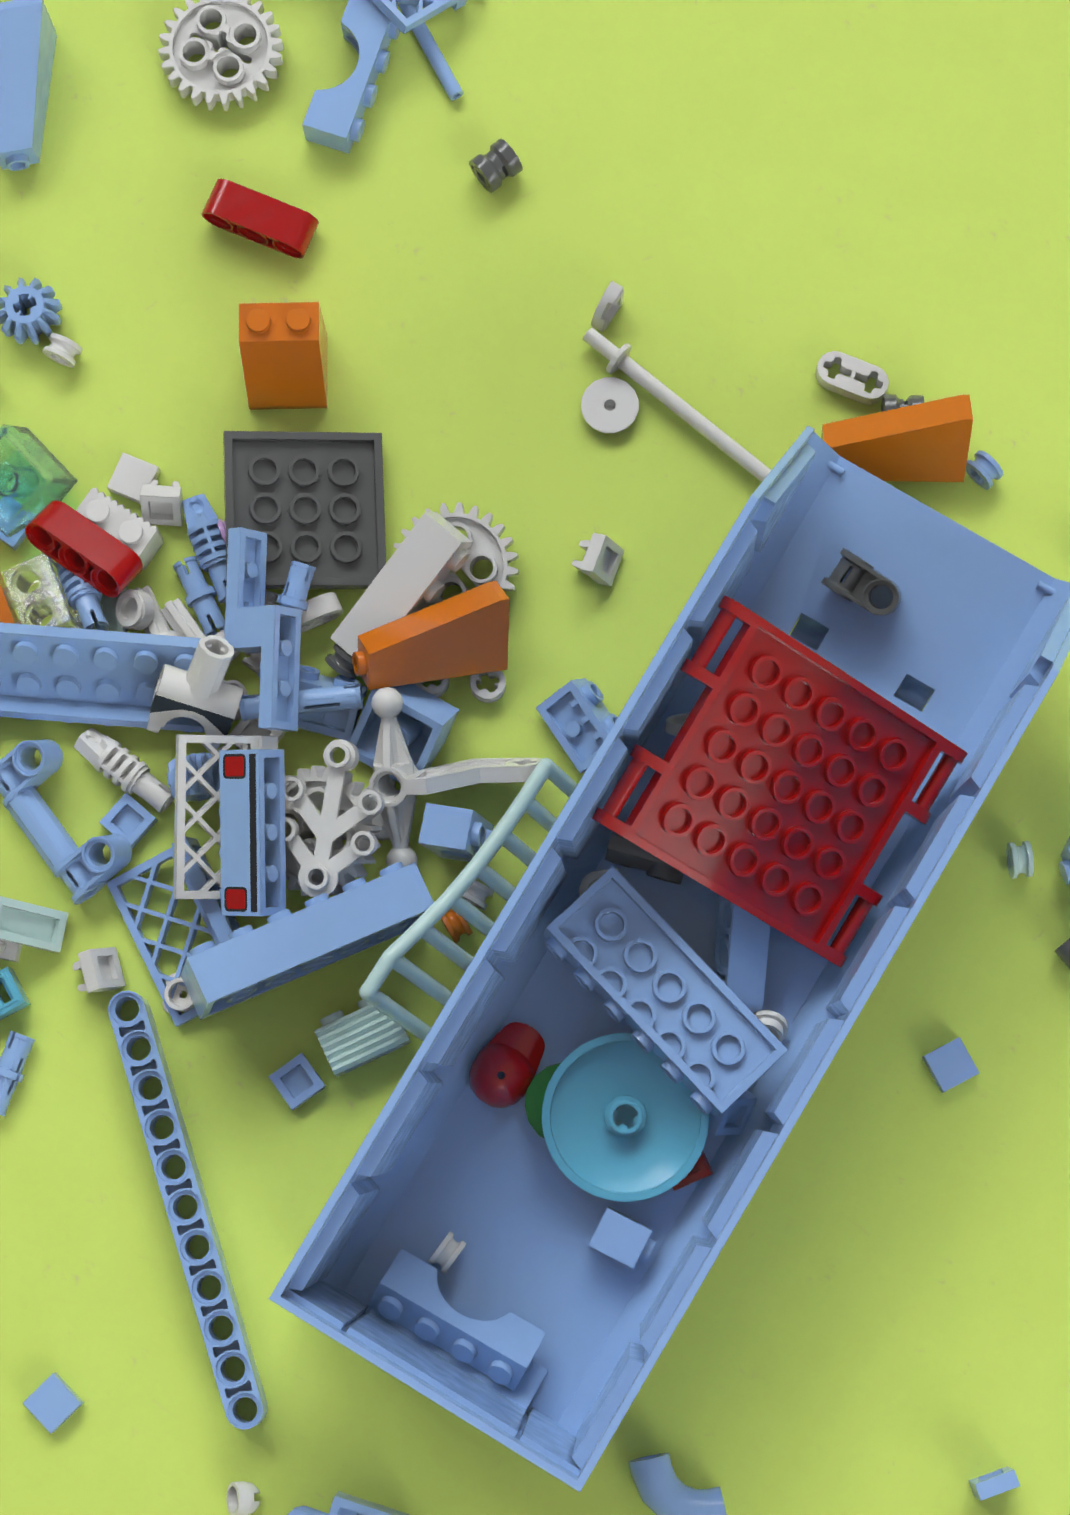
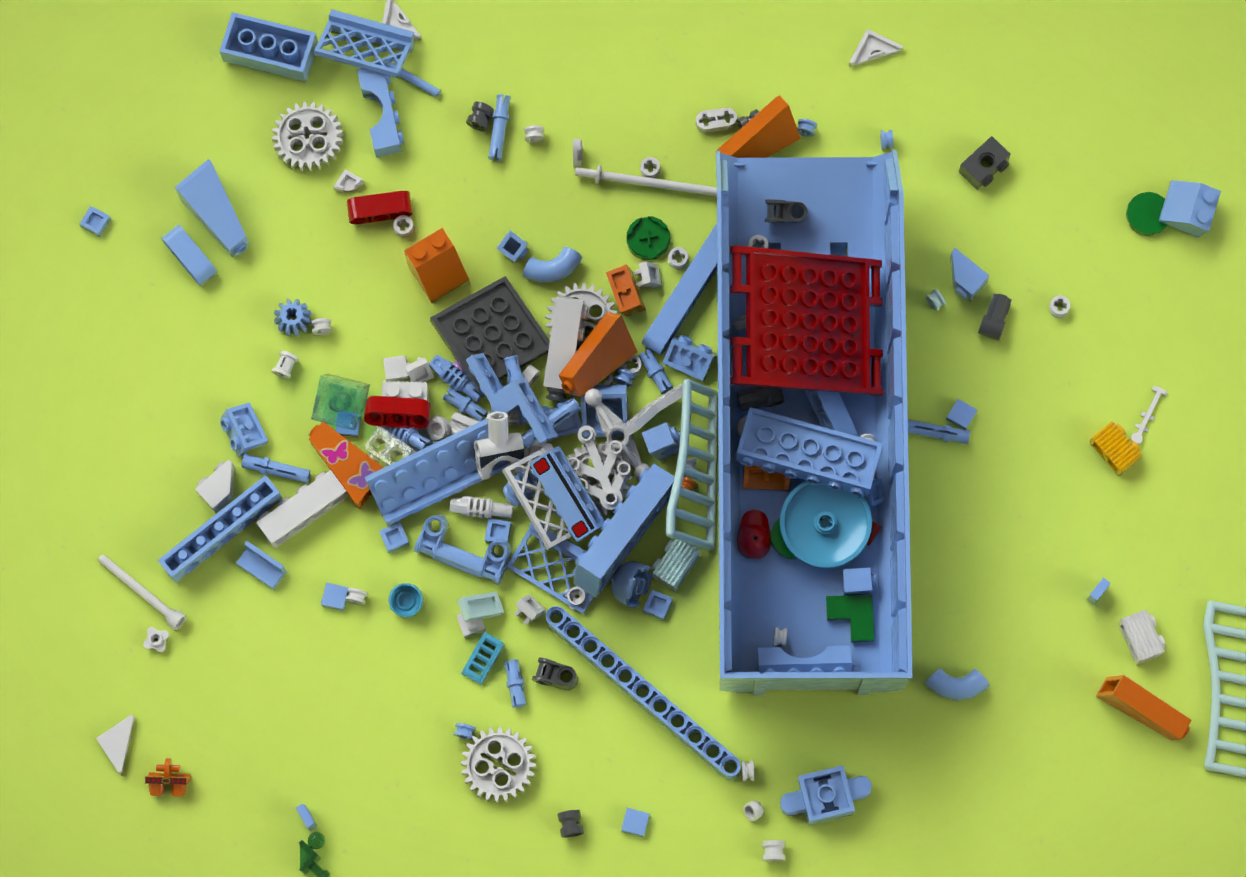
camera: 30 degrees left, 5 degrees down
(68, 1092) = (550, 674): none -> dark grey piece
(239, 154) = (348, 182): none -> white tile
(271, 1024) = (630, 582): none -> light blue cylinder
(271, 1430) = (747, 770): none -> white bush
(279, 255) = (399, 220): none -> white bush
(419, 393) = (513, 246): none -> light blue brick
(460, 466) = (553, 269): none -> light blue cylinder
(463, 696) = (624, 377): none -> light blue bush
(518, 715) = (655, 371): none -> light blue pin
(525, 186) = (499, 126): none -> light blue pin
(549, 561) = (625, 290): none -> orange hinge
(559, 979) = (759, 479): none -> orange hinge
(560, 239) = (534, 133): none -> white bush
(595, 1280) = (857, 609): none -> green tile
(609, 405) = (607, 199): white piece -> none
(612, 633) = (683, 296): none -> light blue beam
(635, 500) = (648, 238): none -> green tile
(673, 555) = (683, 253): none -> white bush
(717, 392) = (655, 163): none -> white bush
(798, 605) = (760, 239): none -> white bush
(929, 1102) = (960, 435): none -> light blue pin

